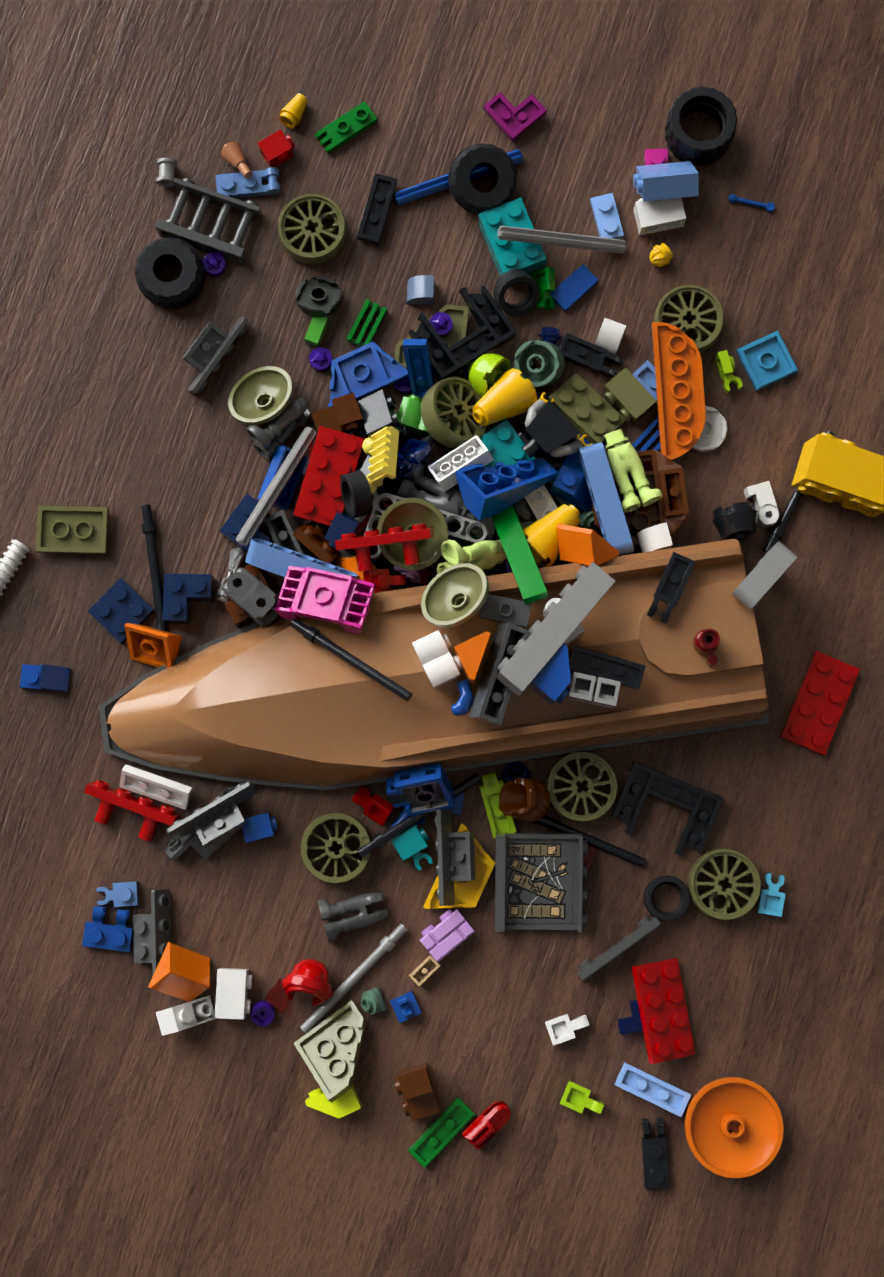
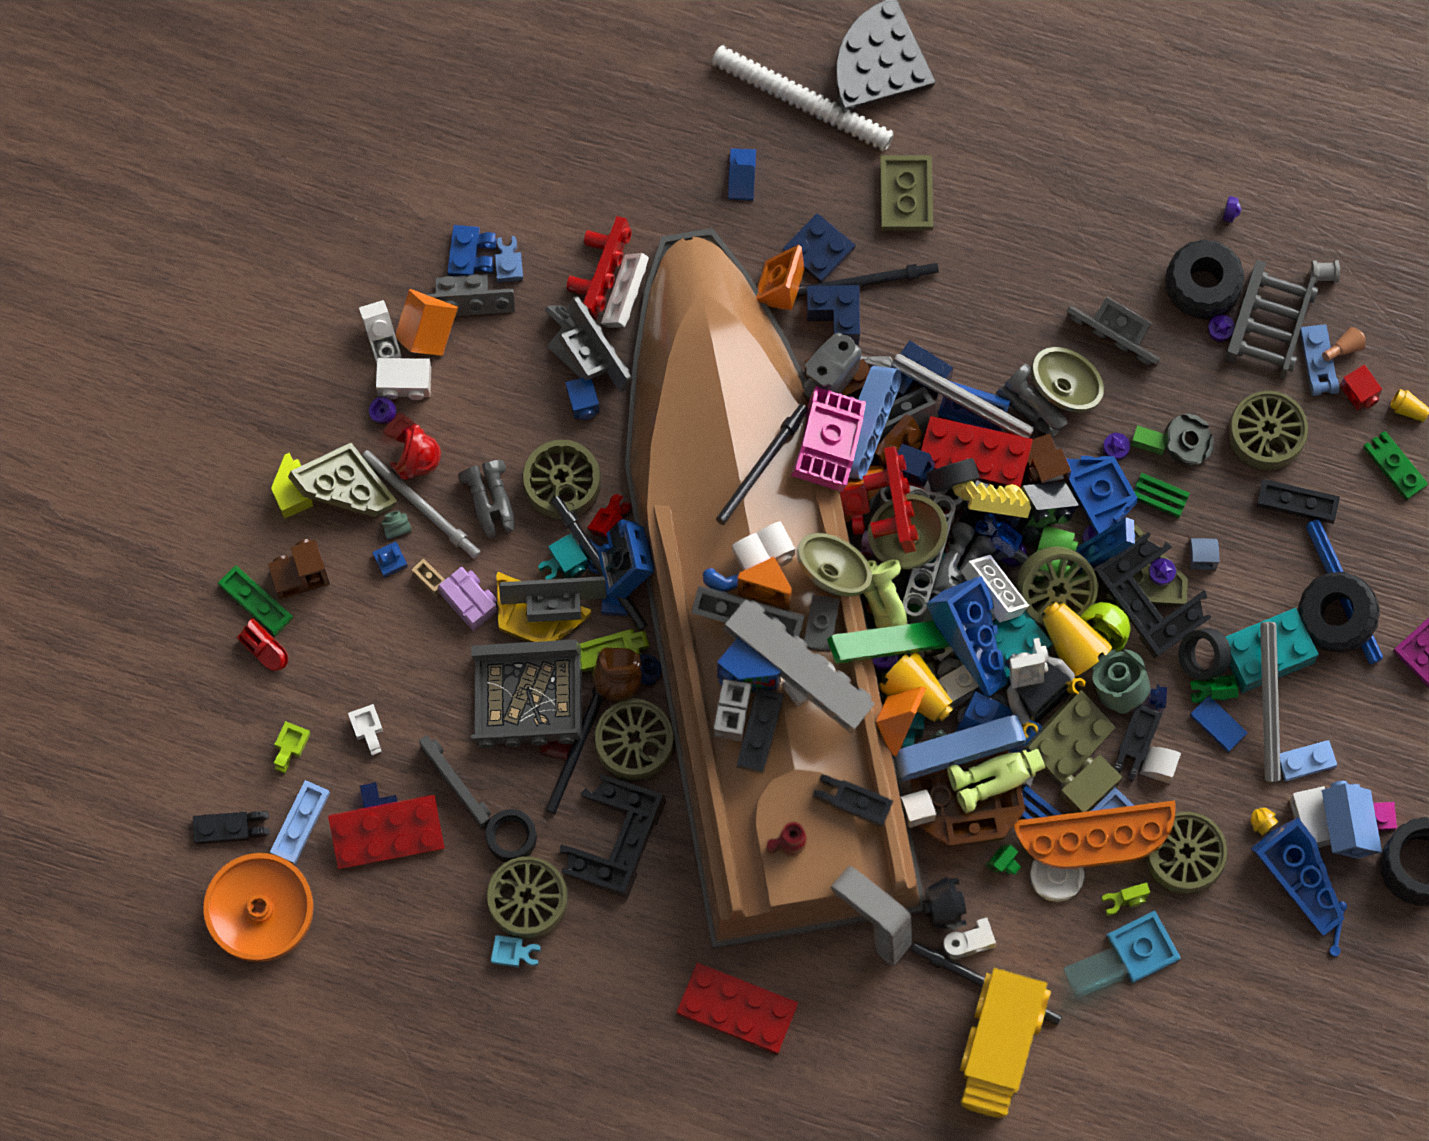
camera: 85 degrees right, 10 degrees down
(103, 247) = (1232, 209): none -> dark purple tile
(543, 423) = (1028, 668): none -> white bracket
(694, 472) = (1003, 860): none -> green tile
(702, 228) = (1297, 866): none -> blue wedge
(790, 400) = (1095, 972): none -> clear light blue panel

